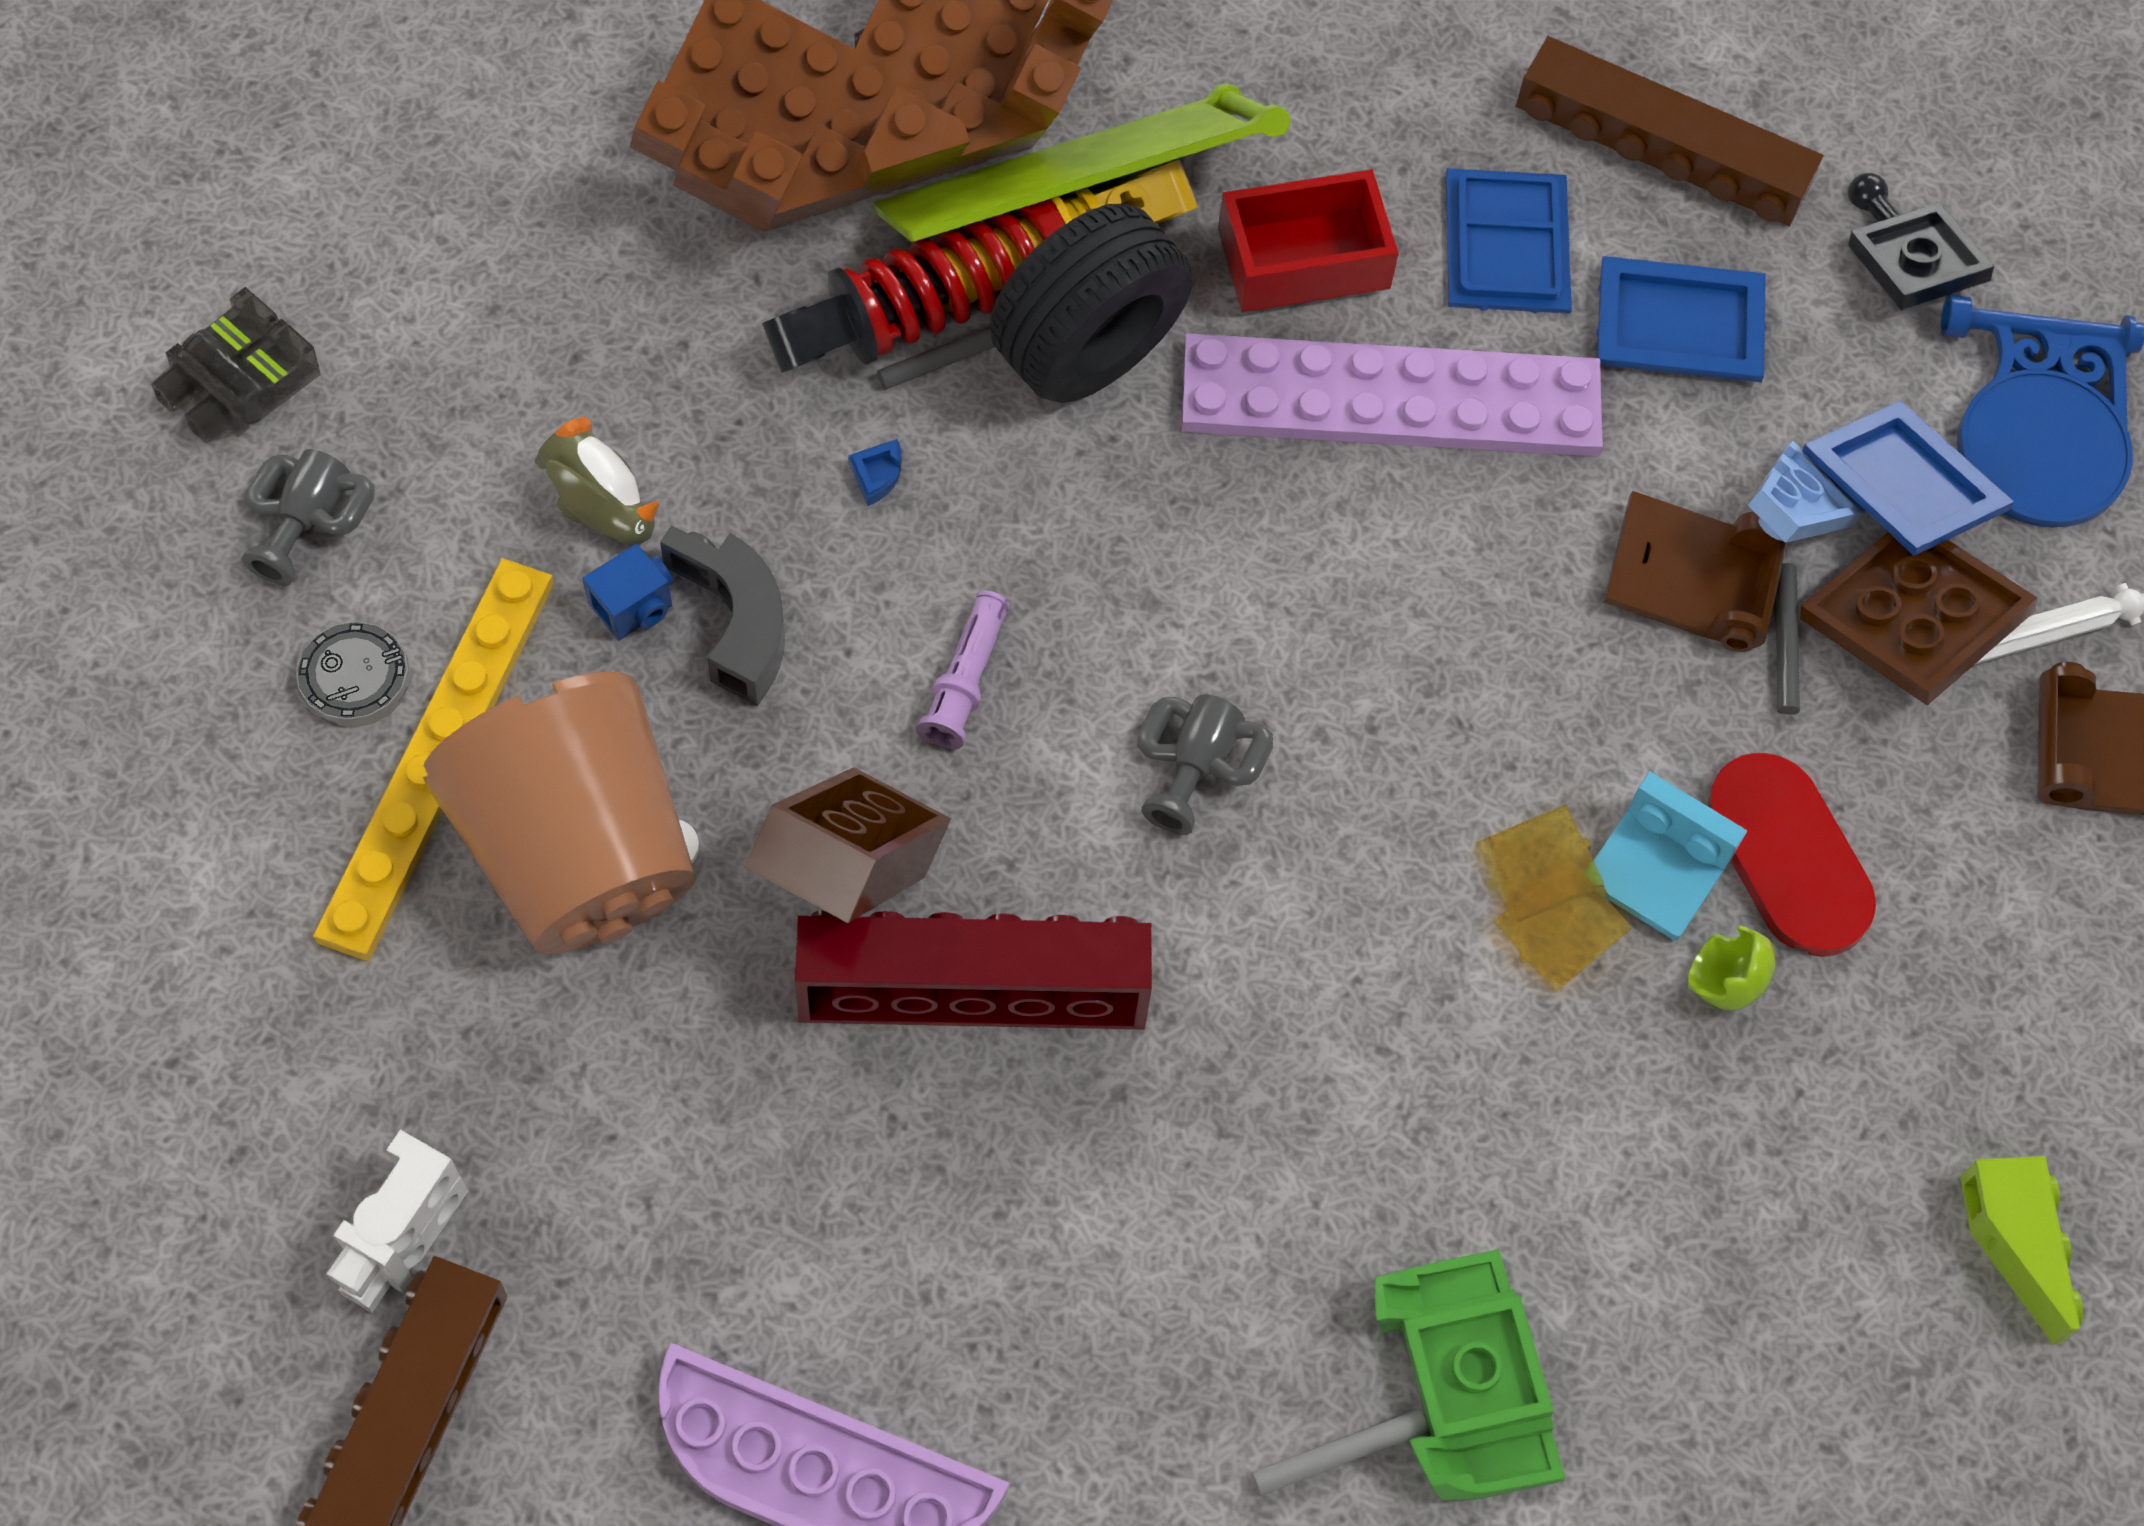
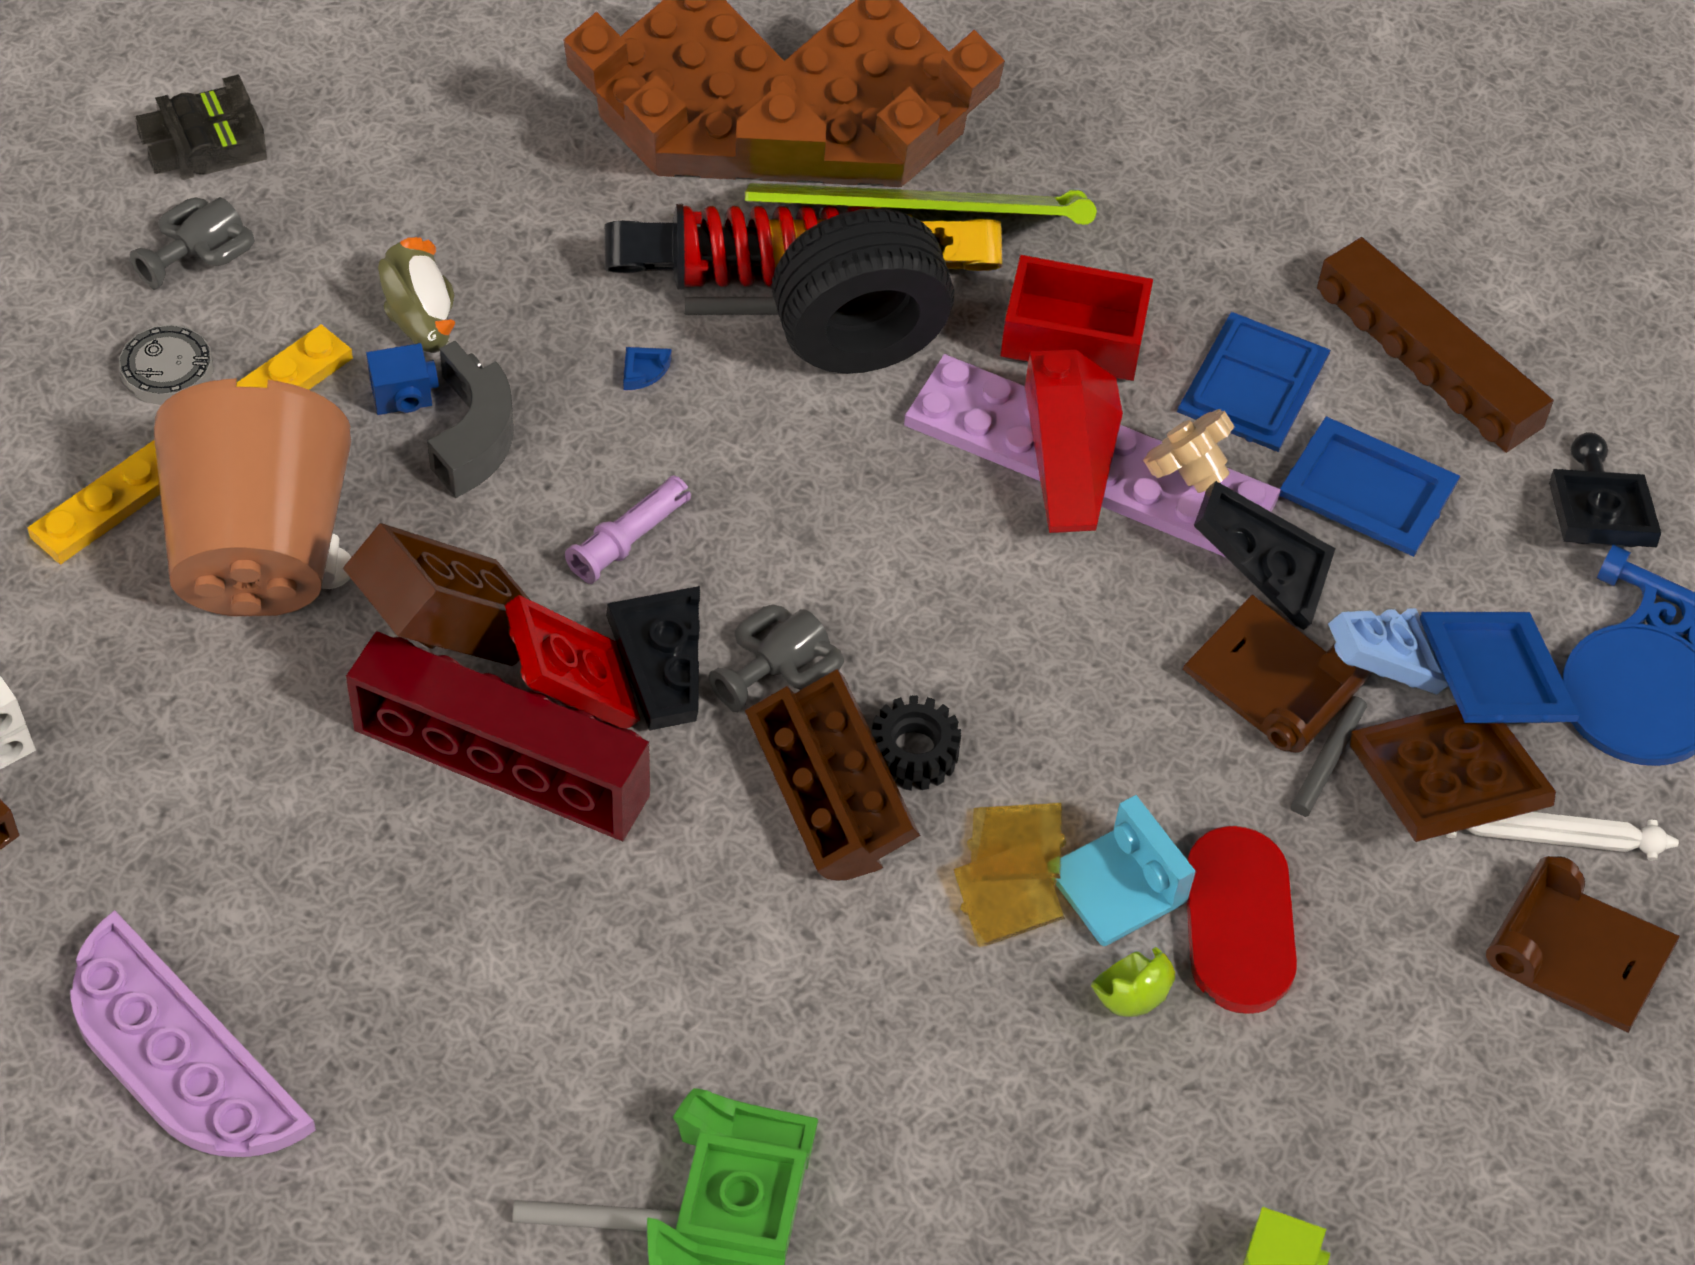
camera: 25 degrees right, 10 degrees down
(1007, 860) = (571, 663): none -> red plate
(1072, 798) = (661, 653): none -> black wing
(1329, 870) = (832, 777): none -> reddish brown brick
(1375, 384) = (1074, 432): none -> red wedge
(1393, 767) = (923, 720): none -> black tyre
(1510, 354) = (1193, 451): none -> tan plant
(1629, 436) = (1268, 550): none -> black wing

